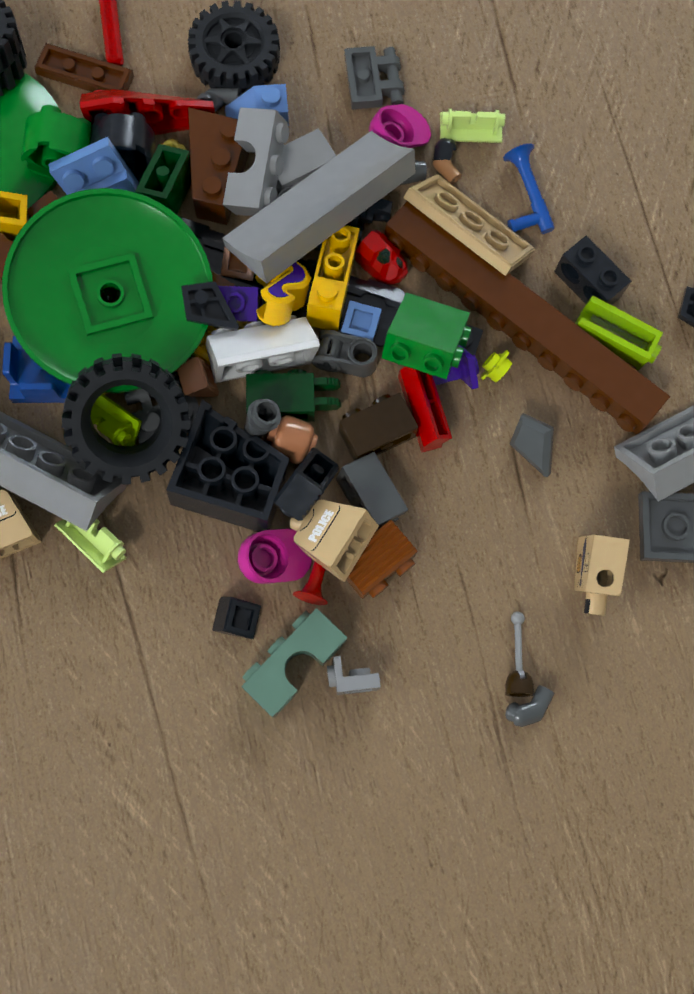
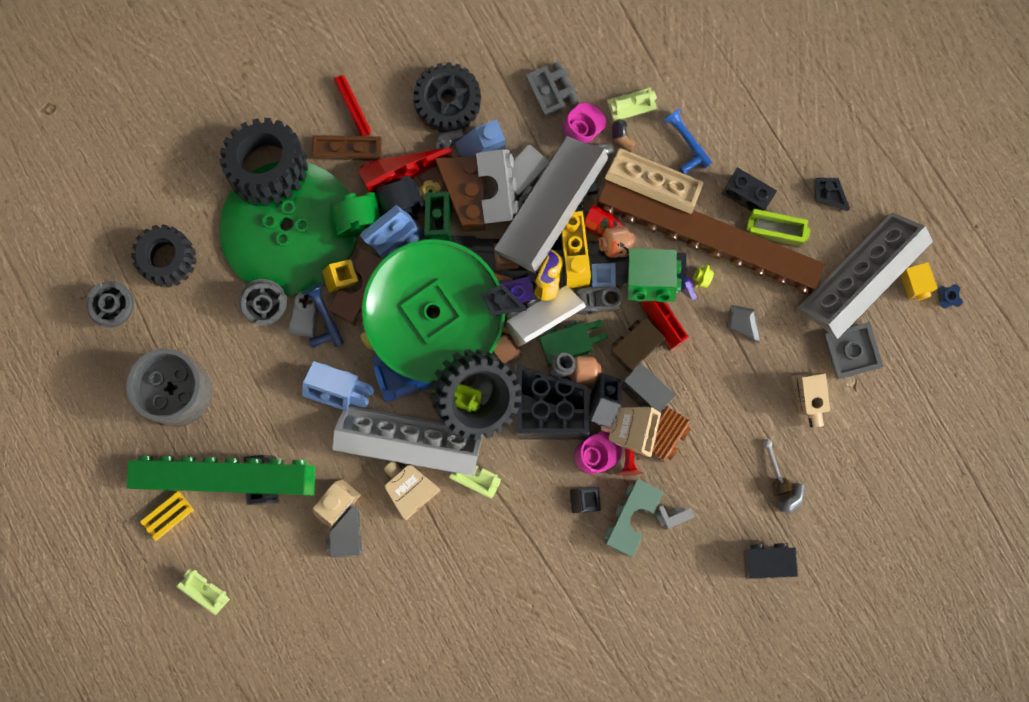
camera: 10 degrees left, 5 degrees up
(392, 283) = (617, 242): none -> nougat head
(471, 789) = (770, 562): none -> black brick

